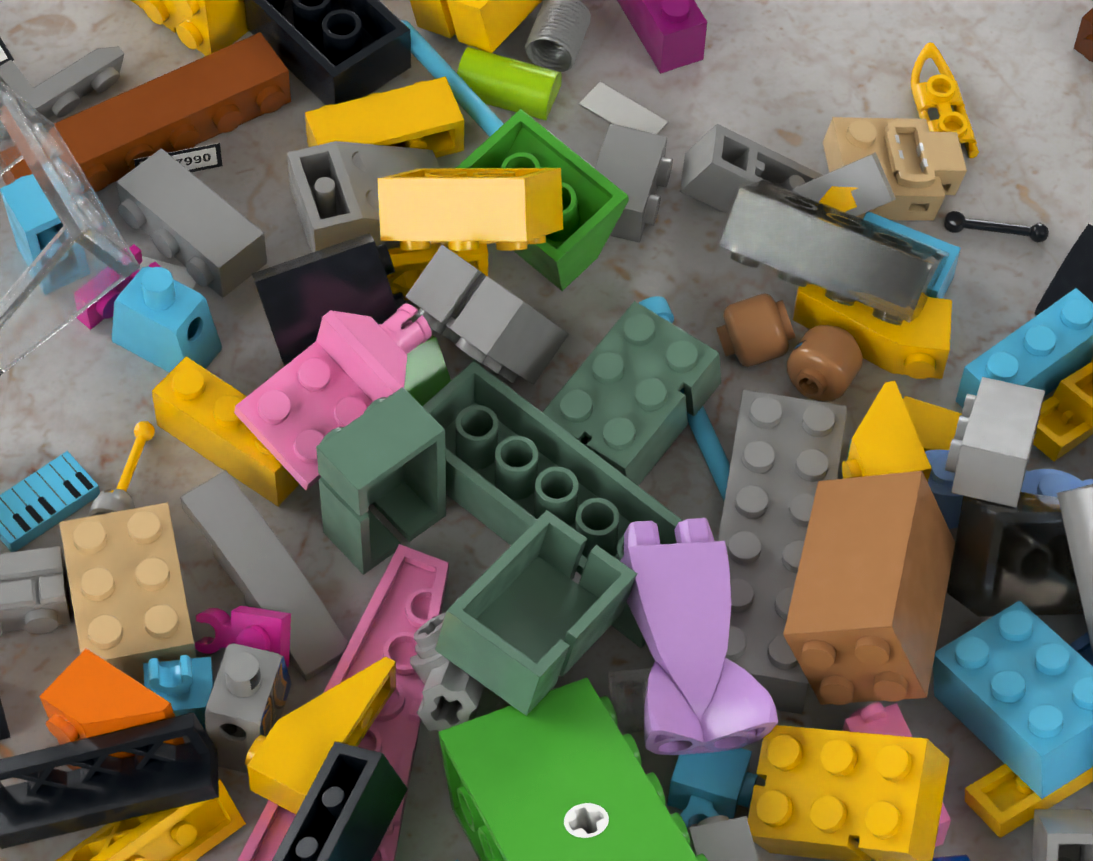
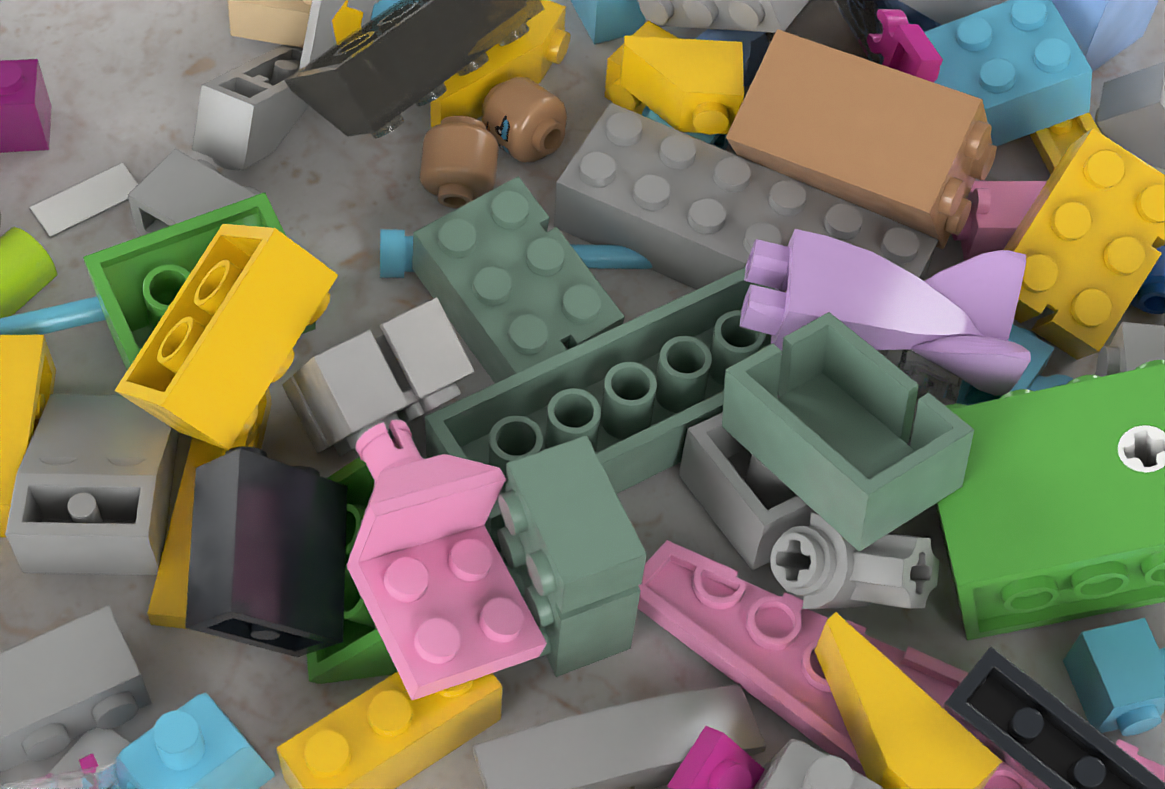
camera: 75 degrees left, 0 degrees up
(981, 608) = (905, 46): none -> dark pink plate

